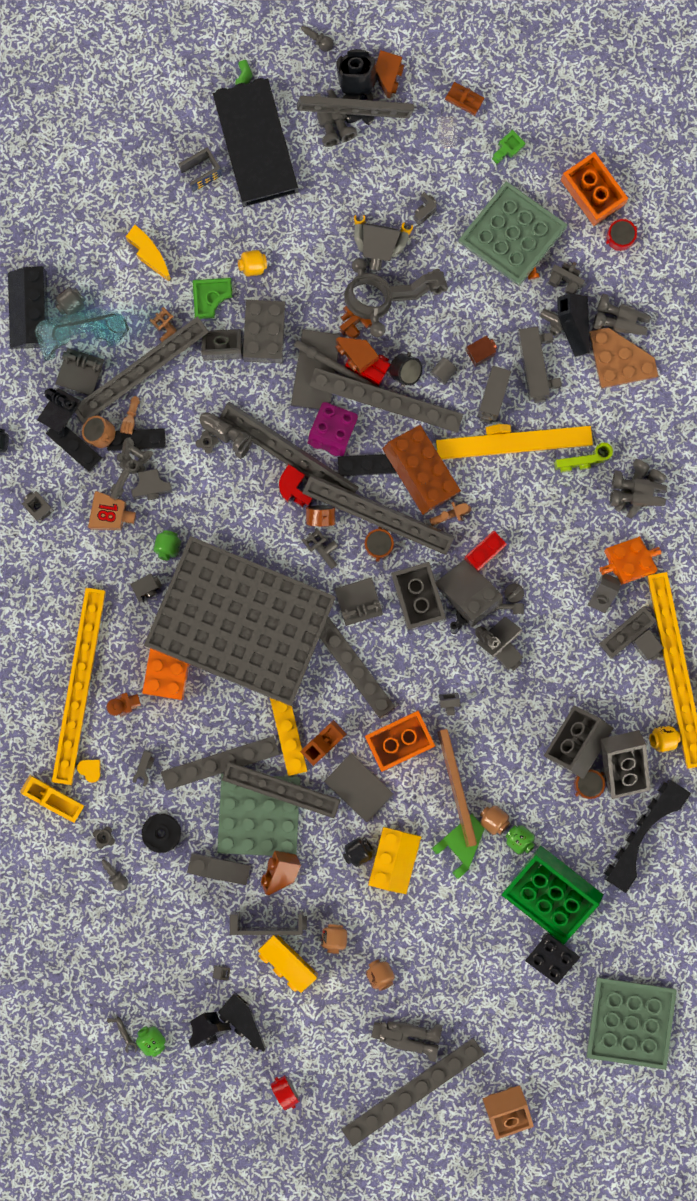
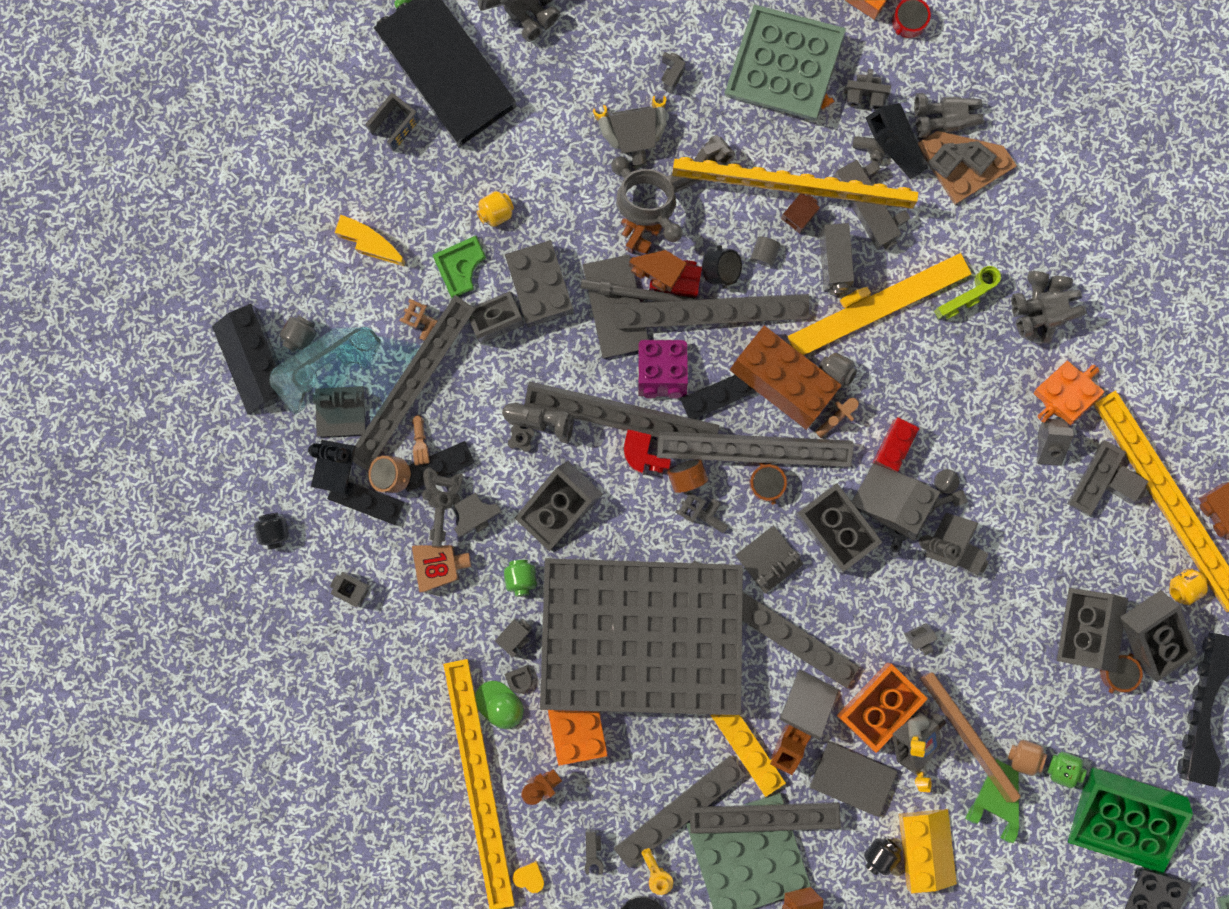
camera: 15 degrees left, 0 degrees up
(116, 634) = (499, 705): none -> bright green cap
(138, 621) = (519, 679): none -> dark grey tile
(186, 808) = (660, 880): none -> yellow plate
(216, 502) = (558, 505): none -> dark grey slope
(346, 718) = (809, 704): none -> piece
(415, 777) = (916, 744): none -> torso
(465, 479) = (839, 368): none -> dark grey head
(488, 329) = (802, 184): none -> yellow plate
(626, 354) = (972, 154): none -> dark grey tile

